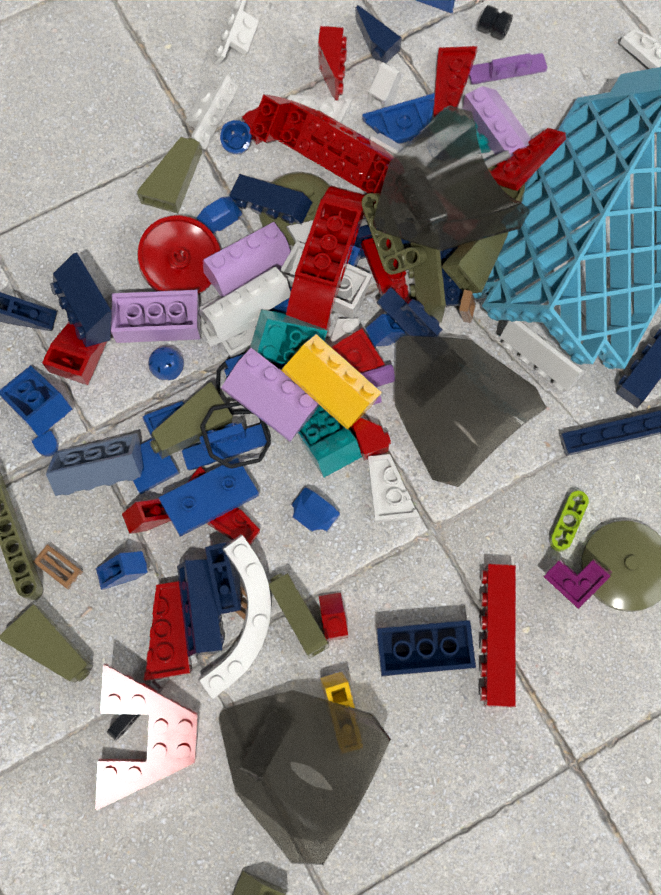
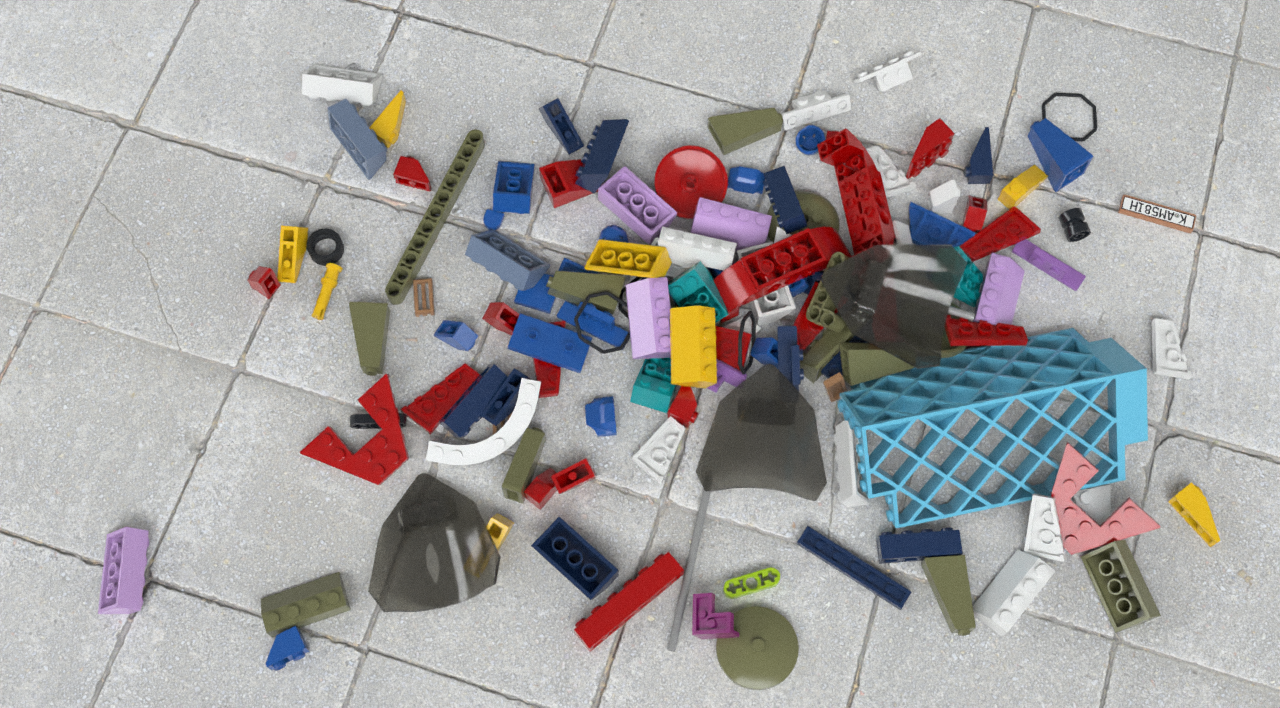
camera: 45 degrees right, 5 degrees down
(201, 364) = (629, 259): none -> yellow slope
(349, 583) = (574, 476): none -> red slope
(368, 339) = (750, 313): none -> black piece
(417, 79) = (975, 213): none -> red slope
(427, 30) = (1021, 187): none -> yellow slope
(510, 557) = (688, 571): none -> light grey piece

